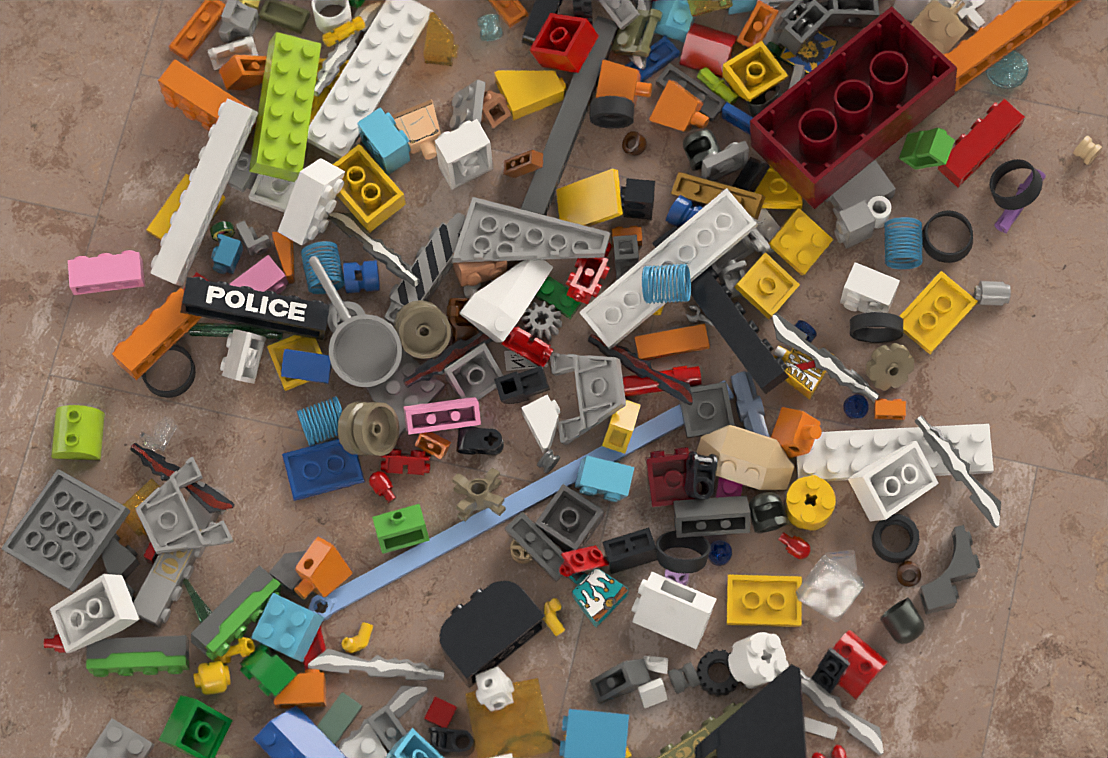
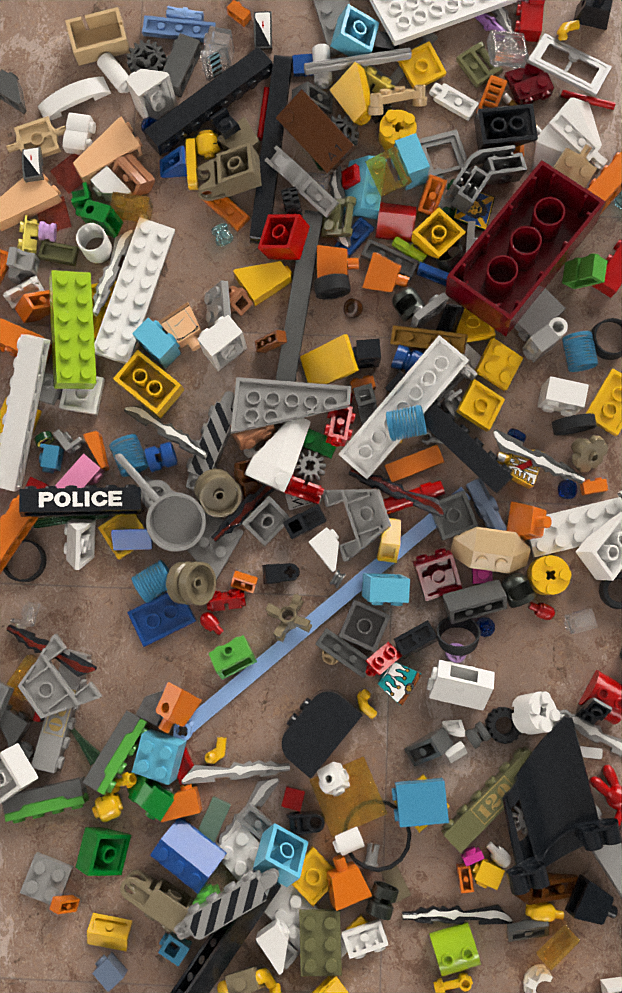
camera: 10 degrees left, 10 degrees up
(311, 201) = (108, 405): white brick -> none
(343, 31) = (107, 258): yellow axle -> none
(439, 43) = (185, 254): clear yellow slope -> none
(442, 415) = (247, 560): bright pink brick -> none
(700, 473) = (461, 570): black piece -> none
(763, 600) = (527, 660): yellow plate -> none
(829, 575) = (580, 644): clear brick -> none

